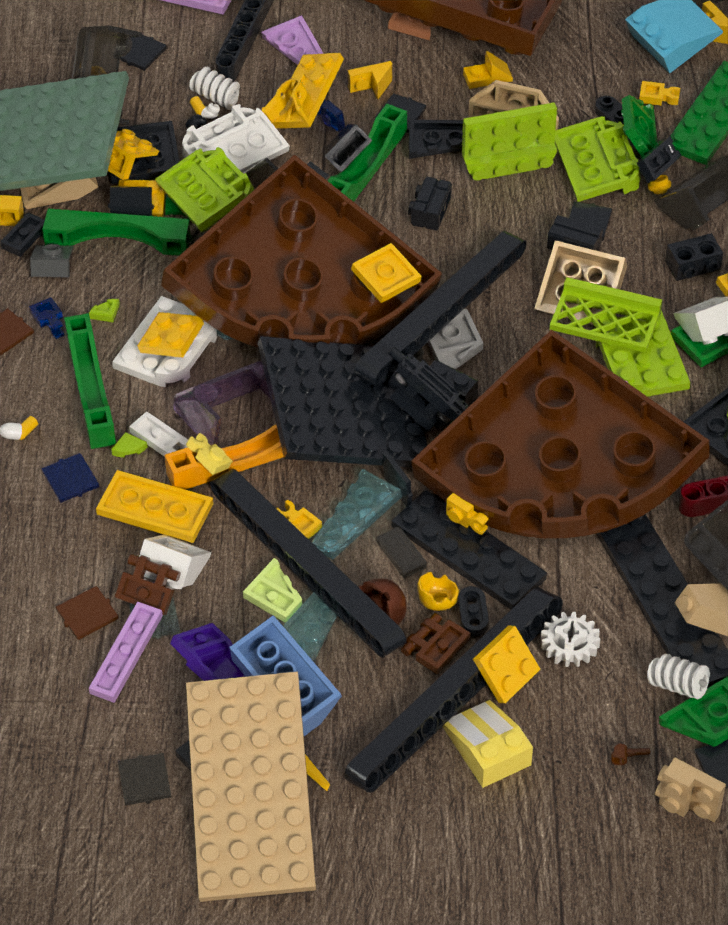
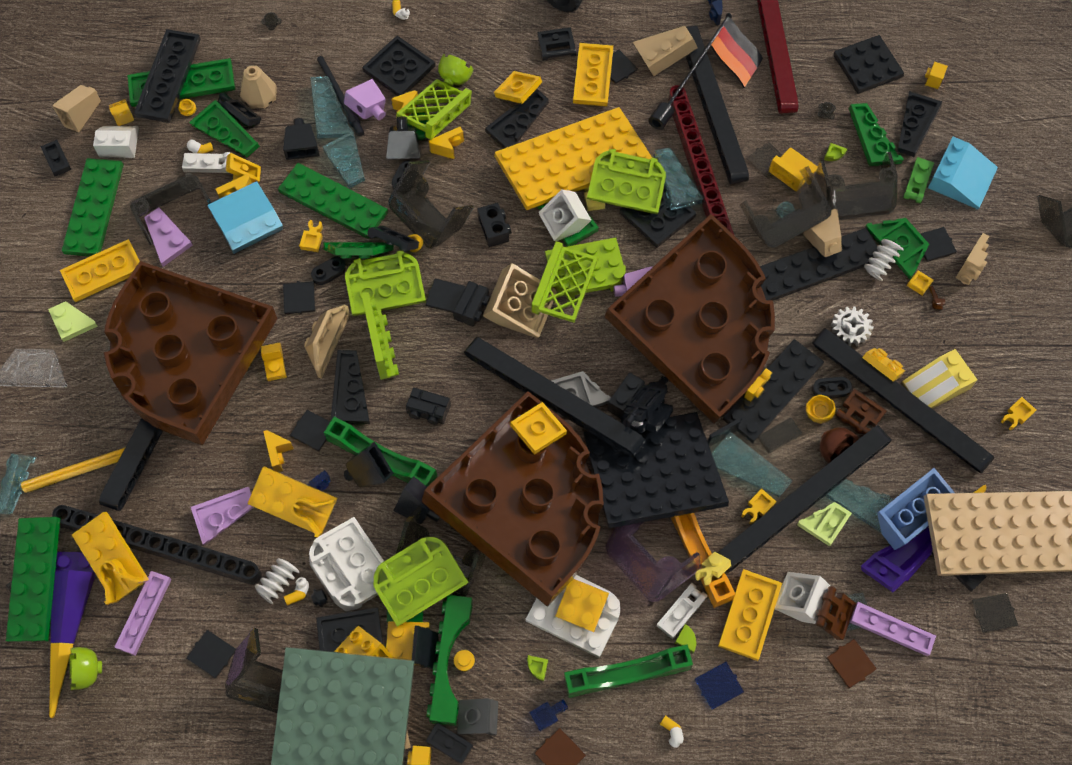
camera: 90 degrees left, 15 degrees up
(117, 246) = (464, 660): none -> yellow plate
(441, 837) = (1019, 413): none -> yellow plate
(574, 91) = (299, 297): none -> black piece
(654, 736) = (920, 282): none -> yellow tile

